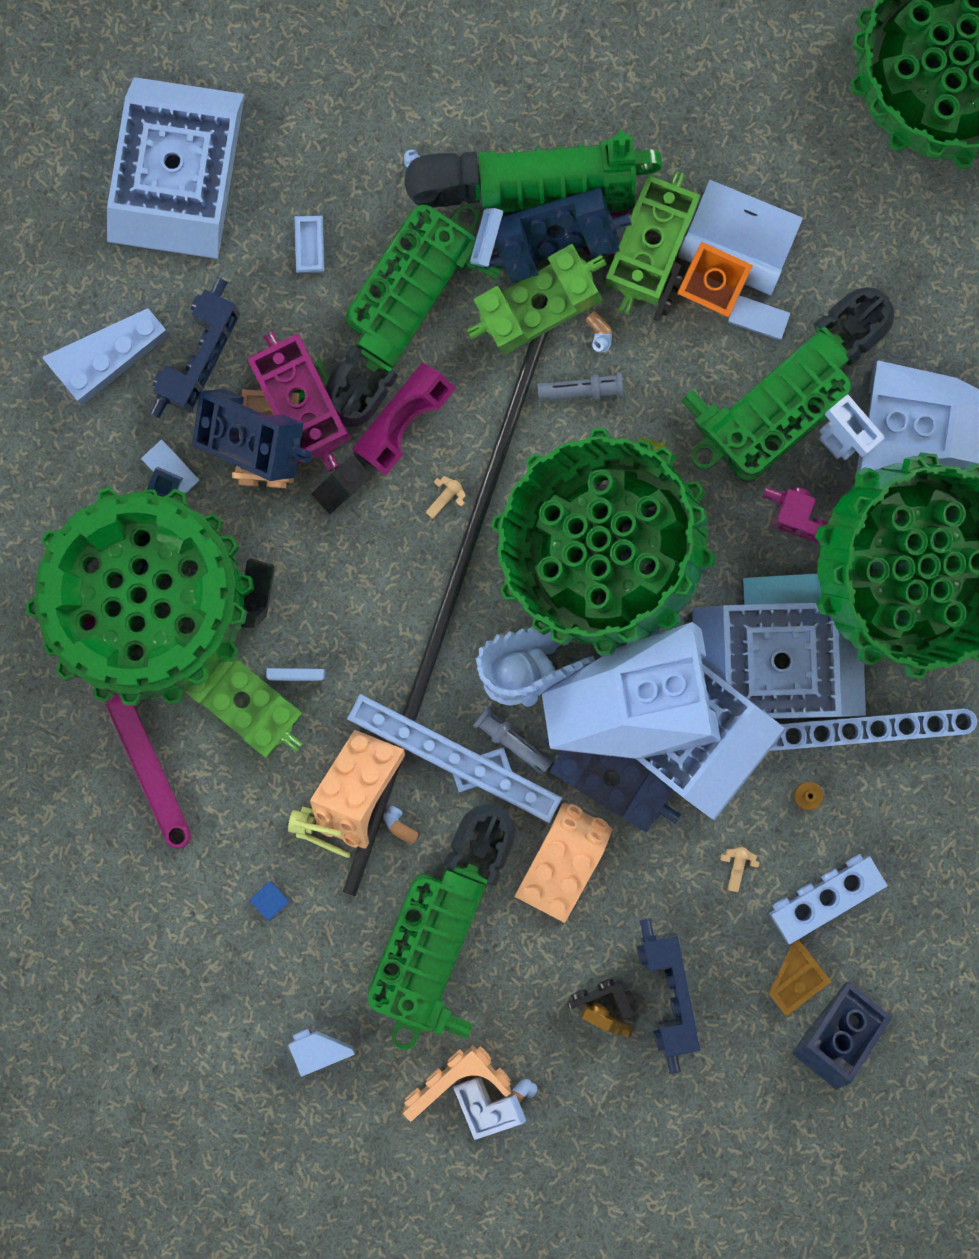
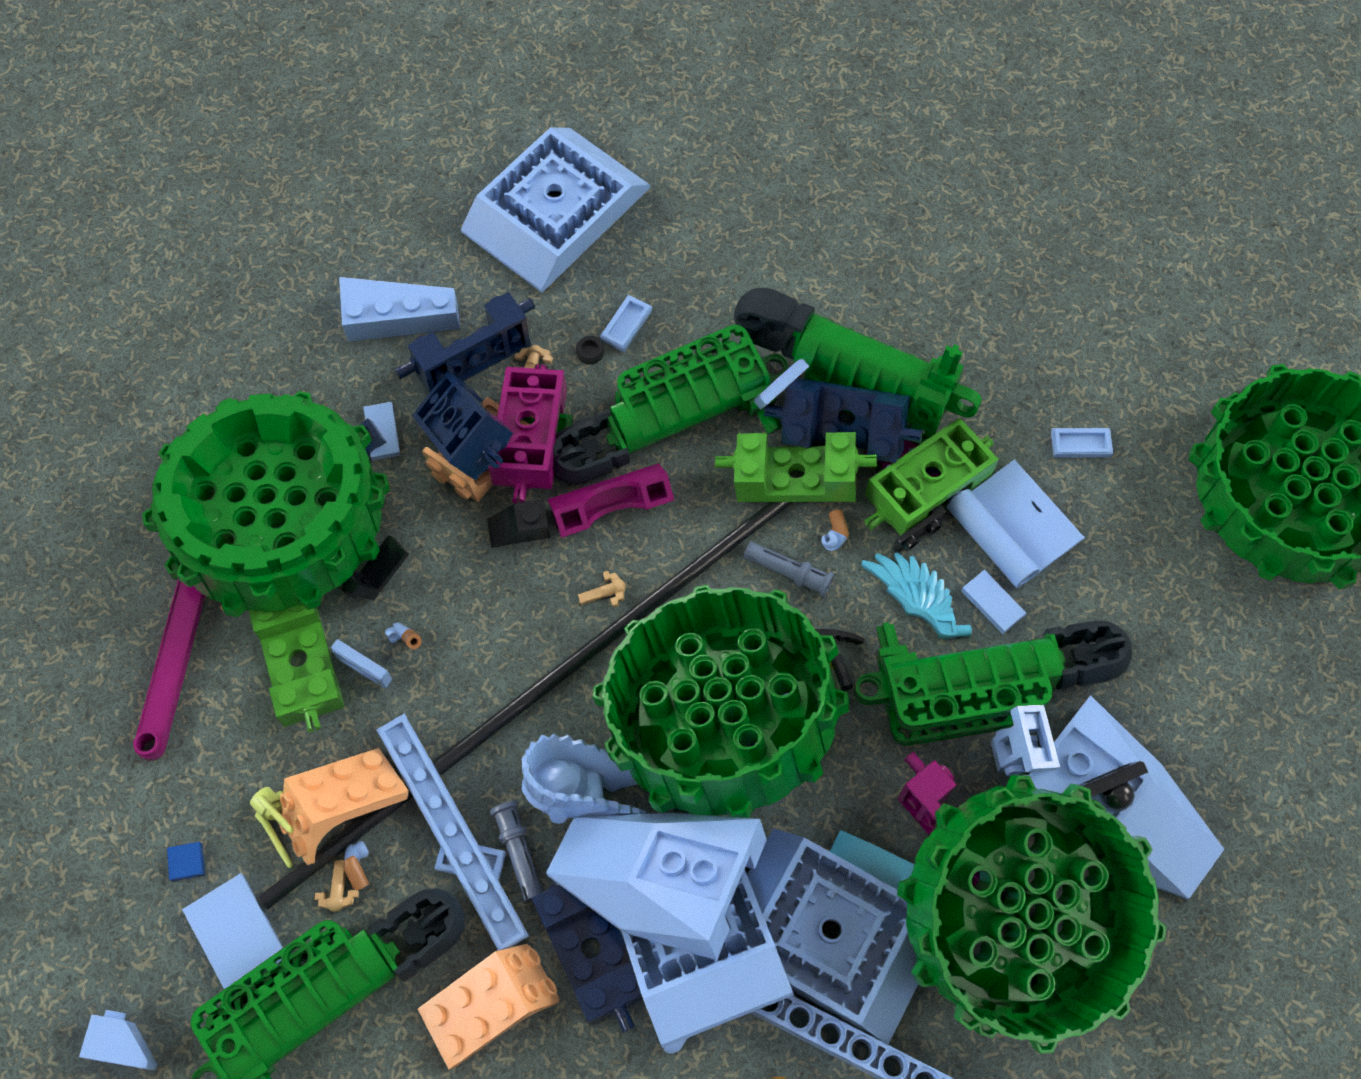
camera: 30 degrees right, 20 degrees down
(251, 321) = (534, 353): none -> tan piece
(295, 288) = (590, 350): none -> black tile
(316, 629) = (402, 632): none -> arm
(344, 927) = (232, 930): none -> light blue tile
(402, 860) = (337, 901): none -> tan piece
(646, 428) = (838, 663): none -> black piece
(695, 345) = (919, 593): none -> medium azure animal
(714, 279) = (969, 539): orange slope -> none
(756, 127) = (1081, 442): none -> light blue tile
(931, 427) = (1114, 785): none -> black tile

